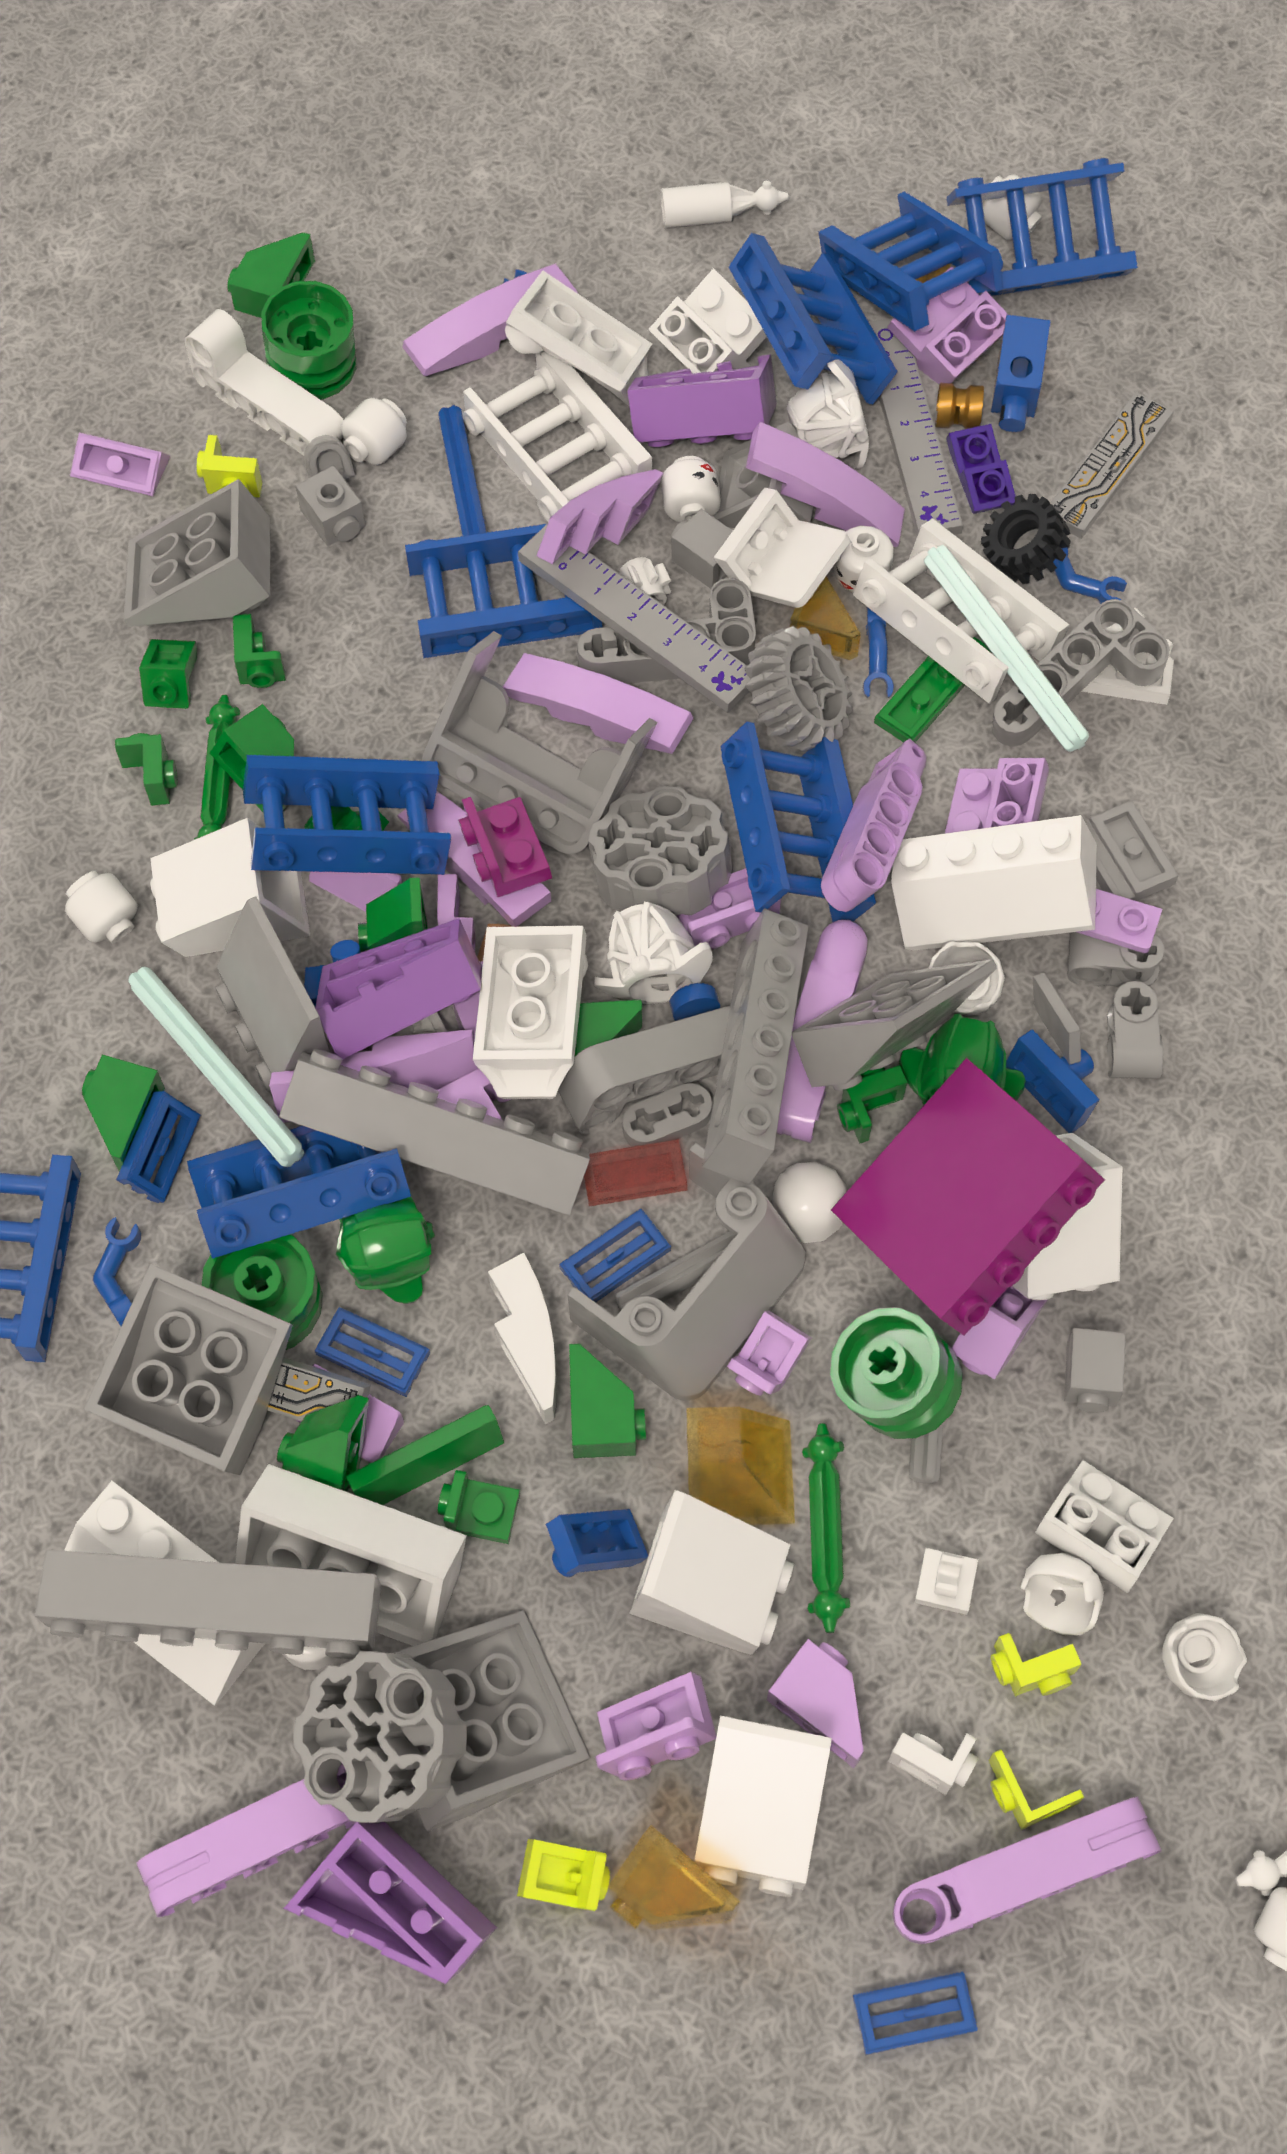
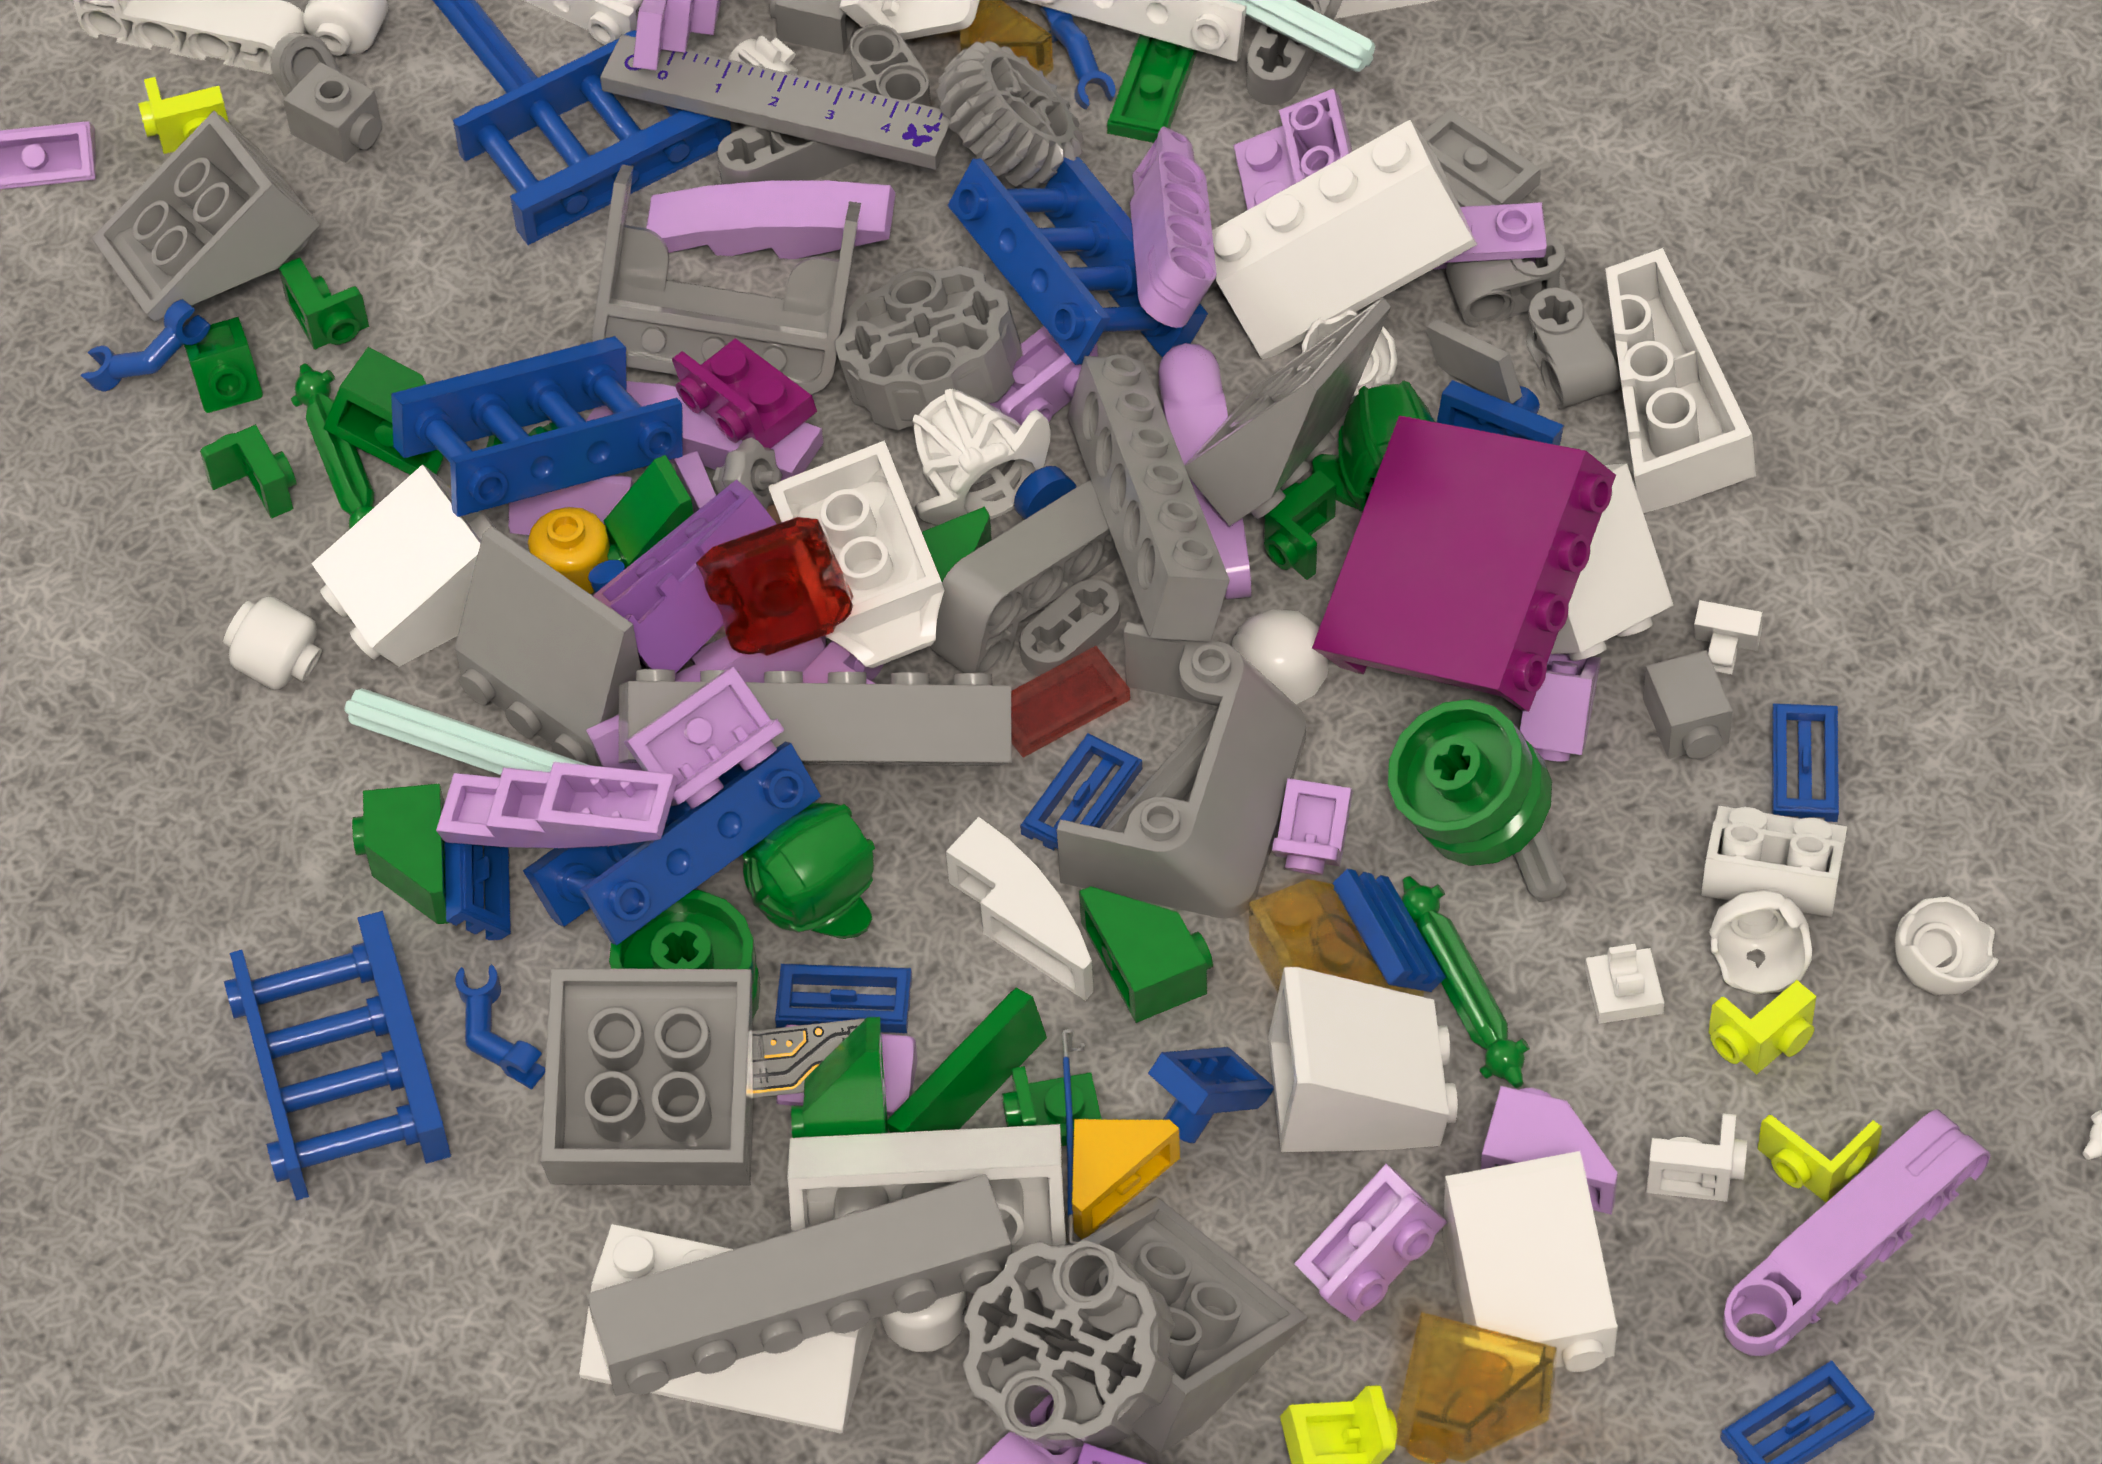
camera: 20 degrees left, 10 degrees down
(128, 648) = (155, 355): none -> blue arm
(214, 1134) = (557, 808): none -> lavender slope
(333, 915) = (570, 543): none -> yellow head
(334, 1128) = (706, 738): none -> lavender bracket
(440, 1024) = (777, 586): none -> clear red slope
(478, 911) = (752, 467): none -> light grey piece
(478, 1537) = (1069, 1123): none -> blue piece
(498, 1576) = (1115, 1164): none -> yellow slope
(785, 1467) = (1388, 931): none -> blue tile
(1149, 1487) = (1805, 806): none -> blue tile
(1152, 1317) = (1727, 631): none -> white tile
(1193, 1115) = (1676, 401): none -> white wedge

